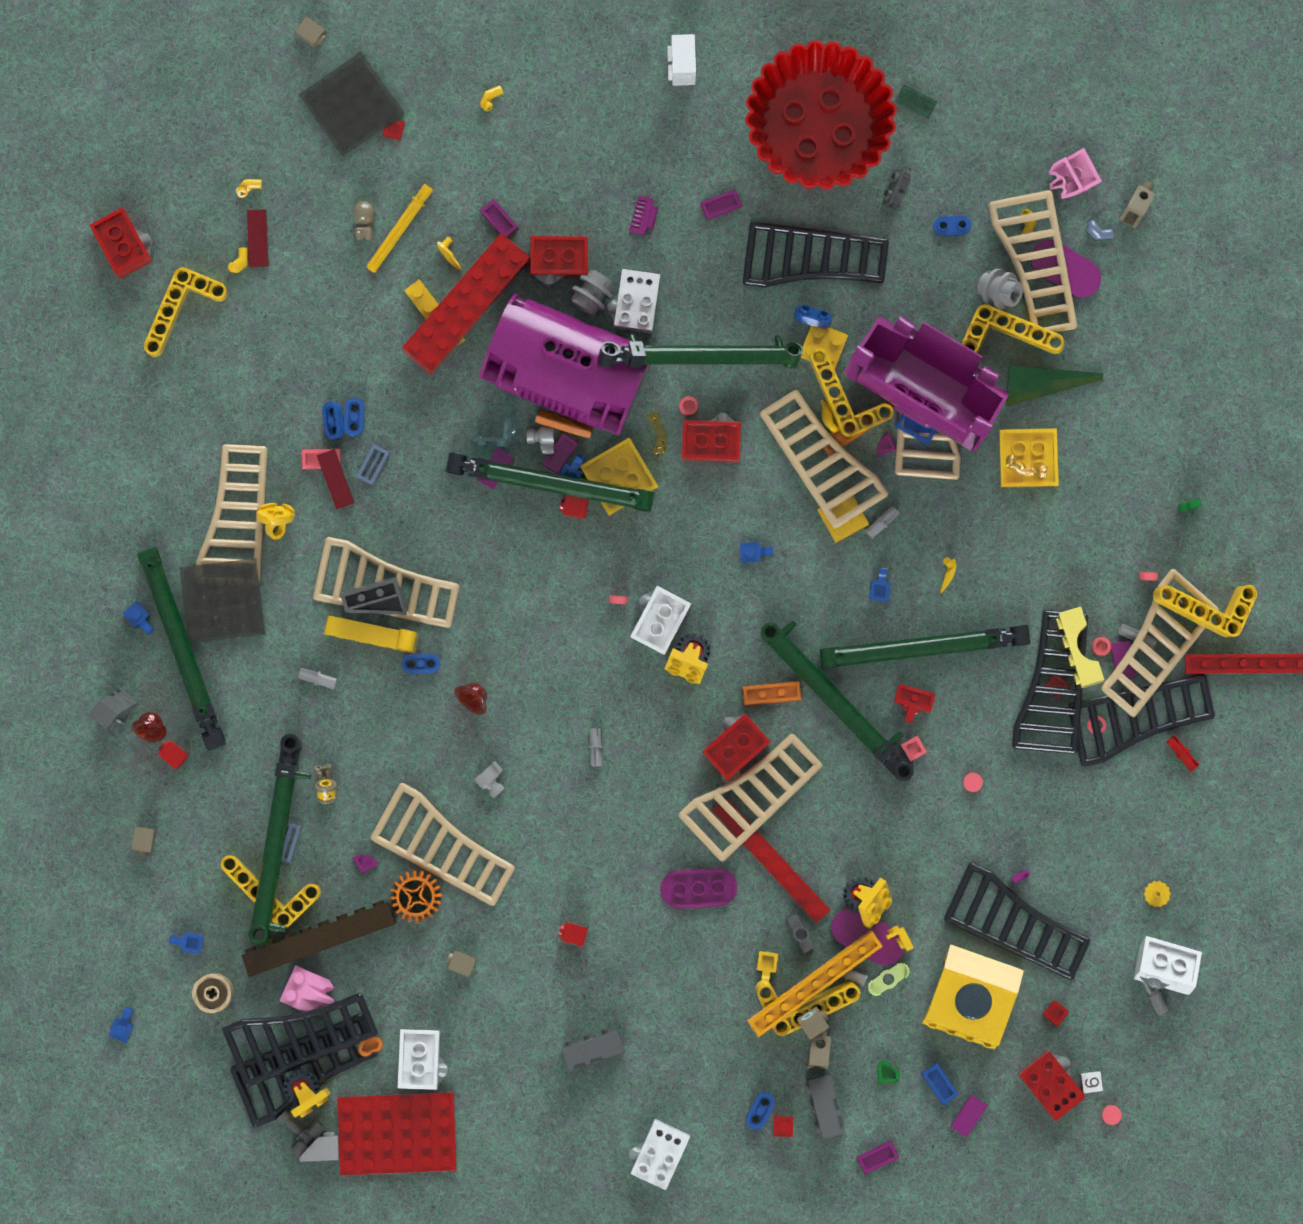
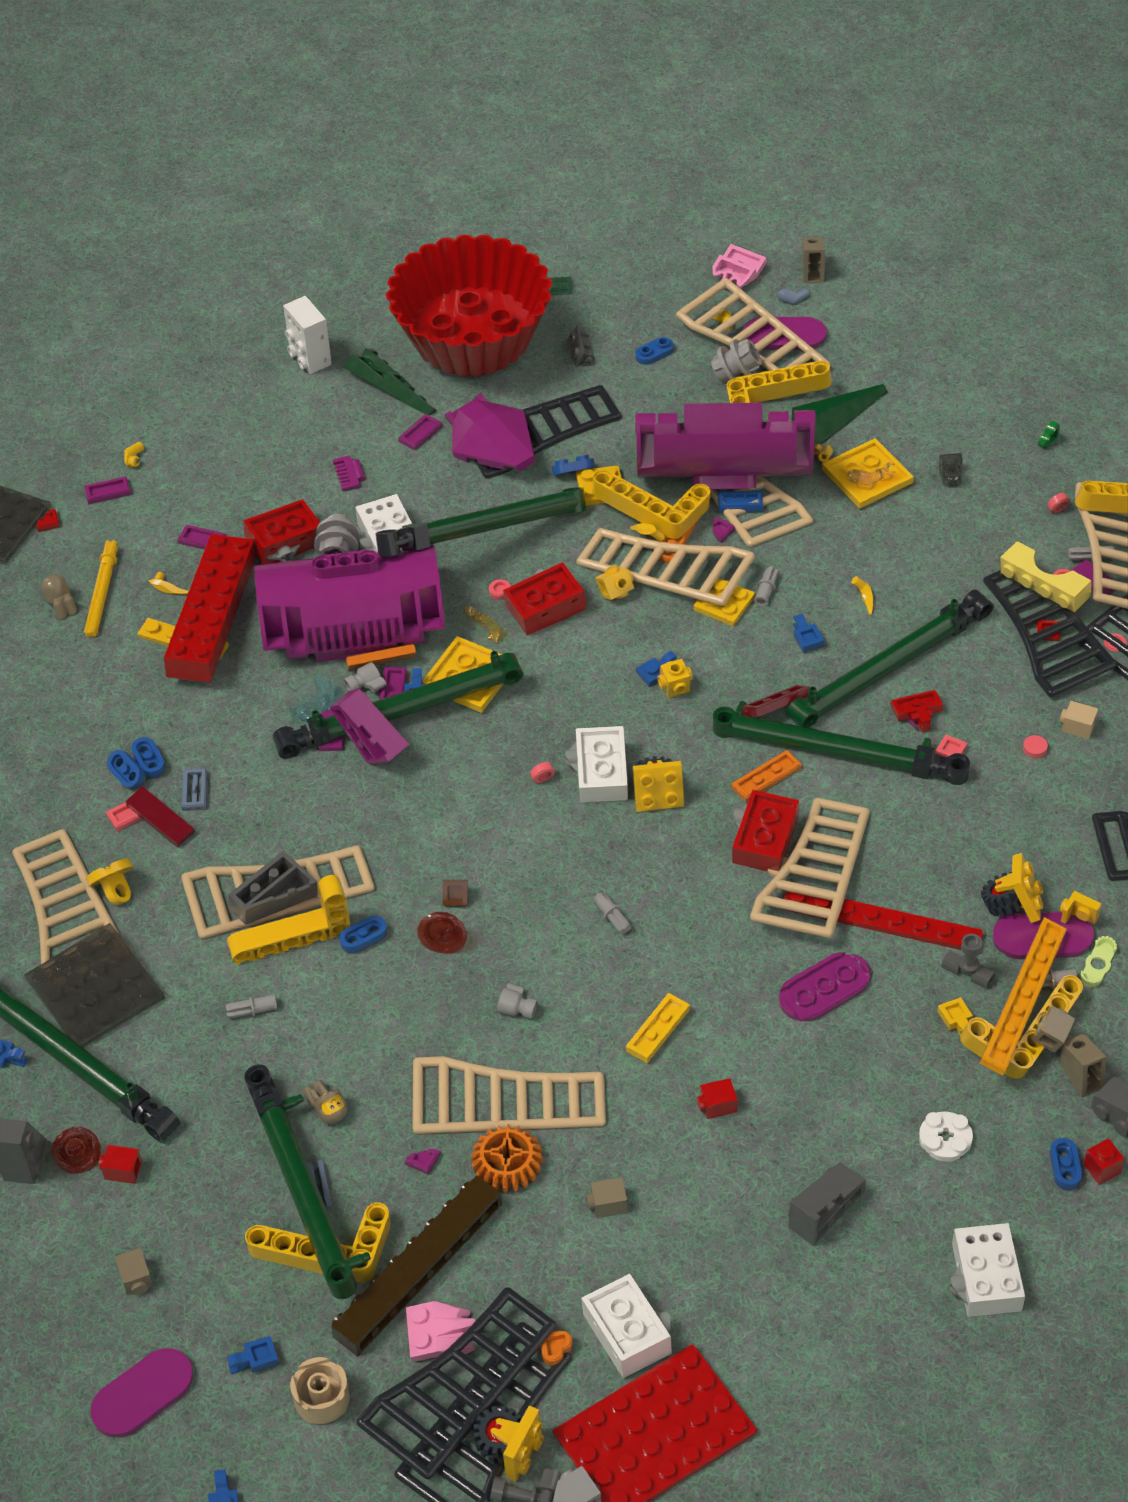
camera: 25 degrees left, 35 degrees down
(110, 924) = (141, 1392): none -> magenta tile
(453, 123) = (107, 490): none -> magenta tile
(500, 667) = (455, 892): none -> reddish brown plate
(513, 498) = (367, 727): none -> magenta wedge
(569, 856) = (657, 1028): none -> yellow plate
(574, 507) = (440, 718): red brick -> none
(698, 1034) = (945, 1122): none -> white plate
(723, 123) = (384, 377): none -> dark green wedge
(751, 573) = (675, 678): none -> yellow brick
(770, 248) = (491, 434): none -> magenta windscreen
(772, 456) = (615, 582): none -> yellow brick
(817, 638) = (775, 701): none -> dark red tile
(1010, 418) = (823, 453): none -> yellow arm
(1016, 781) = (1078, 719): none -> tan brick
(1090, 494) = (950, 469): none -> clear smoke leg

